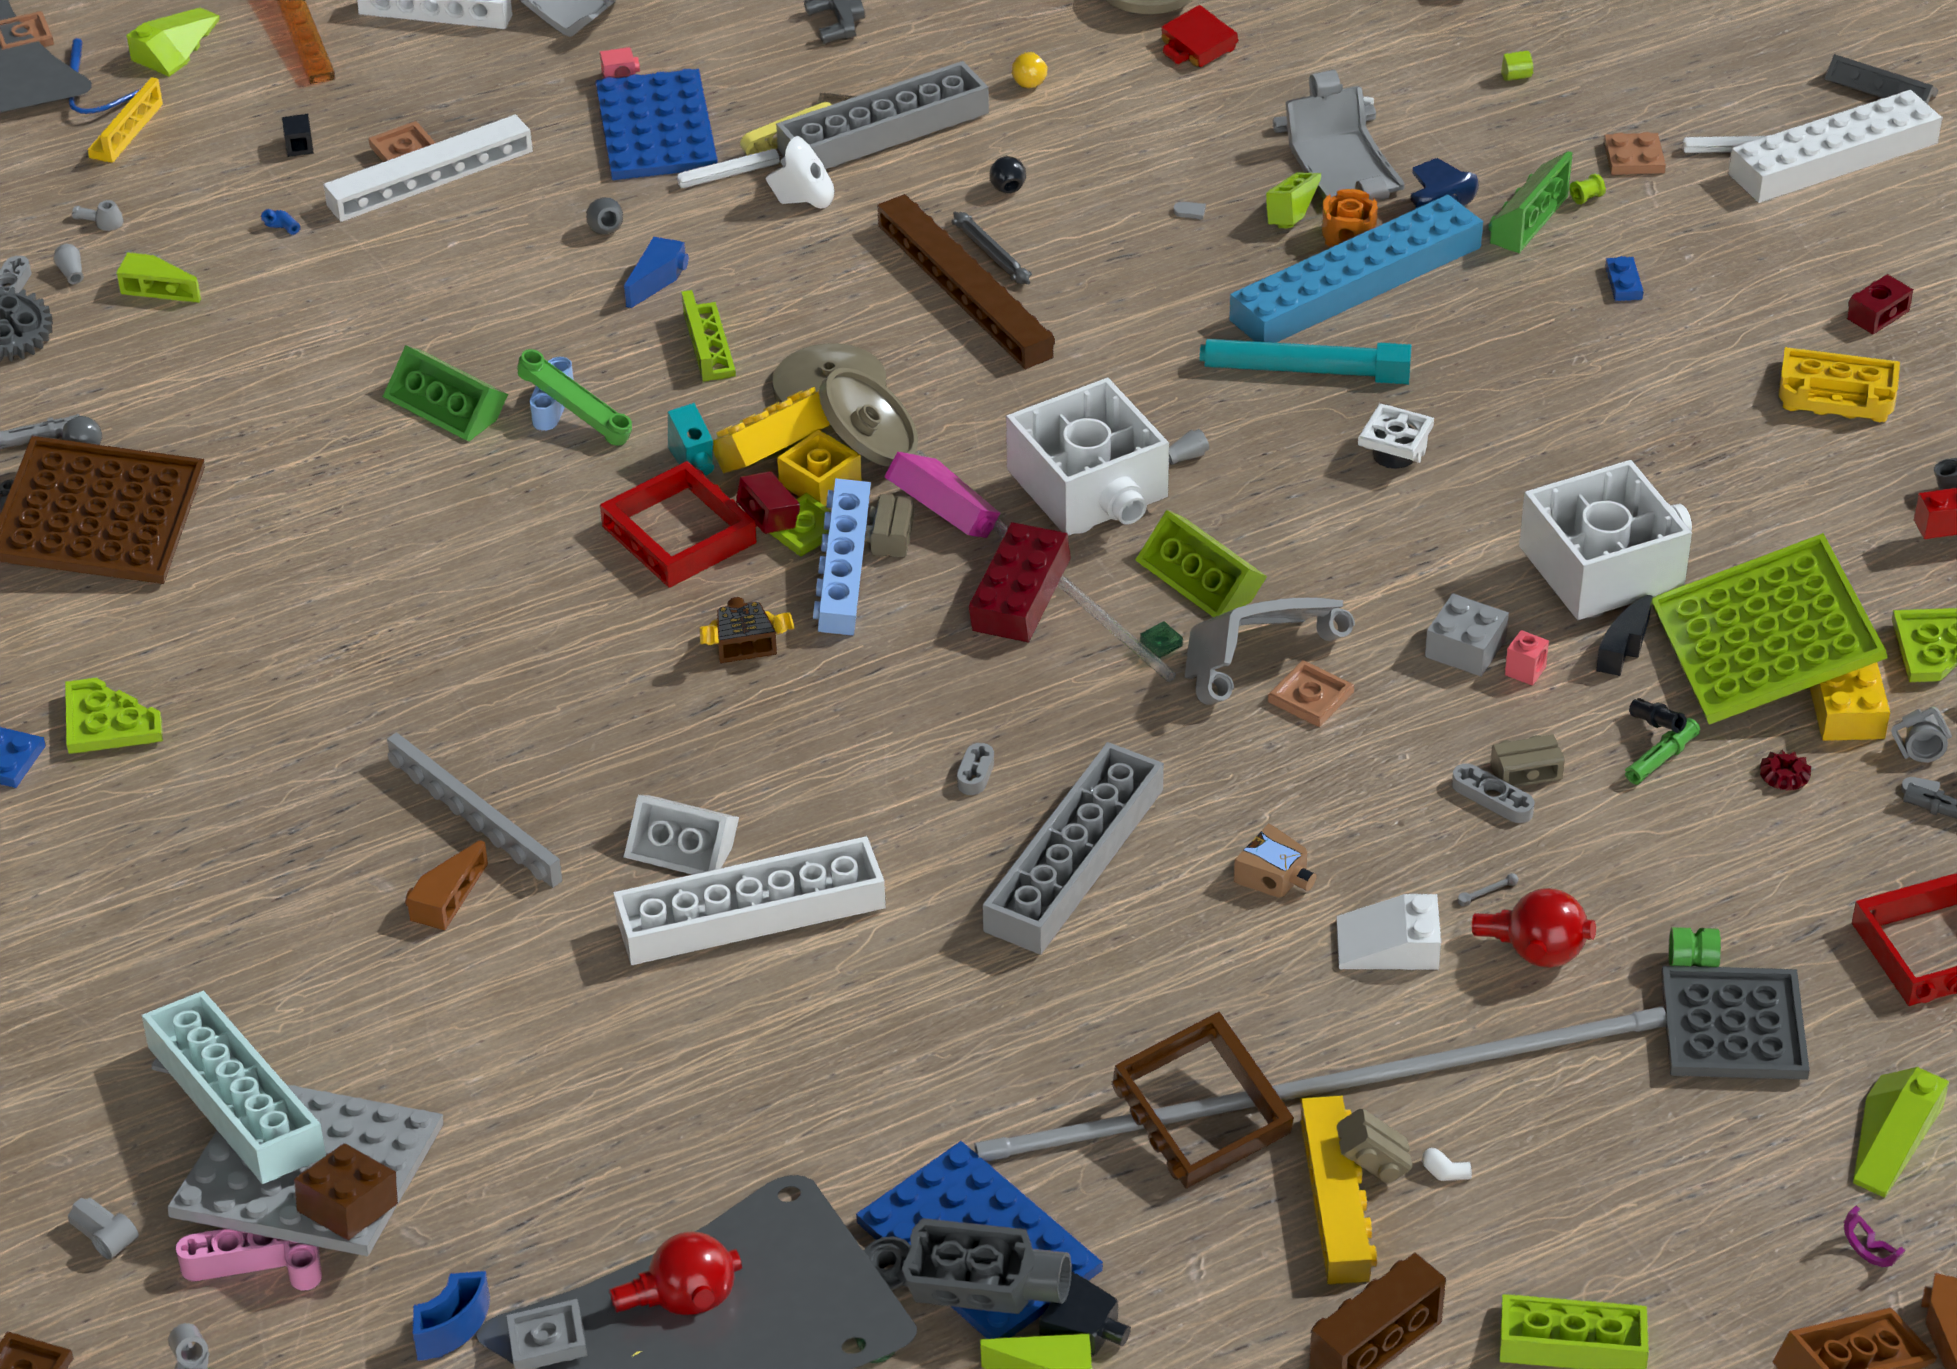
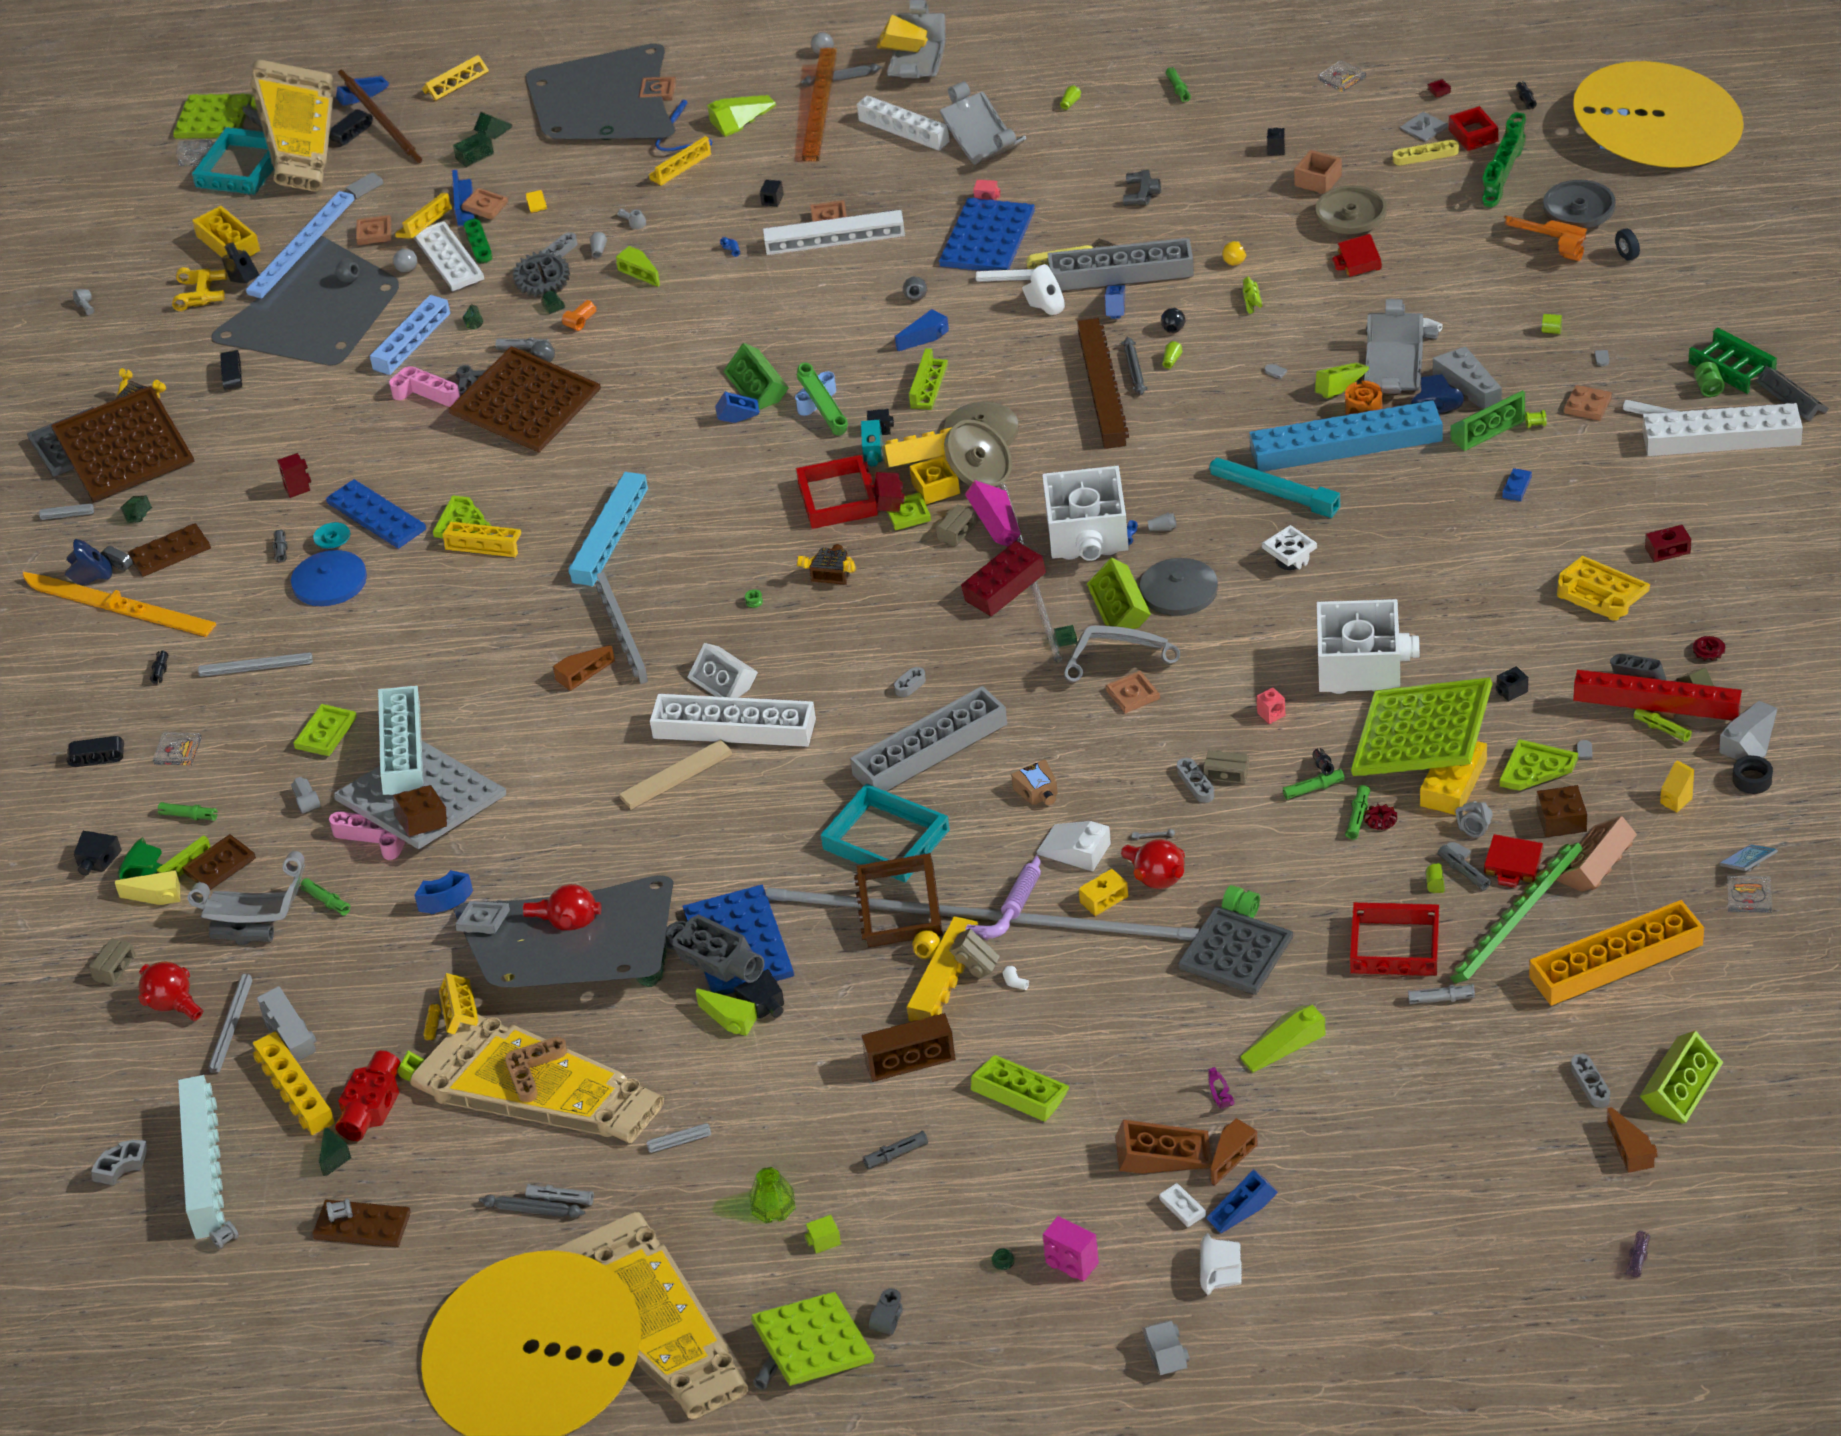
camera: 30 degrees right, 0 degrees up
(47, 361) = (552, 302): none -> clear green brick
(71, 1108) = (325, 730): none -> lime plate
(104, 373) = (577, 318): none -> orange piece
(156, 739) = (481, 542): none -> yellow fence
(354, 668) = (608, 528): none -> medium azure brick
(444, 442) = (736, 407): none -> blue slope
(652, 704) = (753, 598): none -> bright green bush
(670, 401) = (886, 420): none -> black brick
(704, 1011) = (675, 774): none -> tan tile
(843, 558) = (912, 536): light blue brick -> none
(907, 168) = (1115, 301): none -> blue slope
(1035, 219) = (1171, 354): none -> lime cone
(1089, 118) = (1251, 294): none -> lime hinge
(1098, 959) = (871, 796): none -> teal window
(1271, 528) = (1179, 586): none -> dark grey dish
(1286, 1153) = (925, 944): none -> yellow piece
(1375, 1048) = (1013, 903): none -> lavender piece
(1466, 634) = (1244, 681): light grey brick -> none
(1485, 994) = (1103, 892): none -> yellow brick
(1495, 166) = (1468, 376): none -> light grey wedge
(1607, 94) = (1602, 357): none -> light grey piece
(1624, 637) = (1342, 709): black slope -> none
(1749, 764) = (1359, 806): none -> bright green pin
(1771, 88) = (1709, 379): none -> bright green wheel
(1783, 45) = (1738, 348): none -> green fence
(1833, 529) = (1512, 683): none -> black brick
(1929, 833) = (1435, 878): none -> lime brick

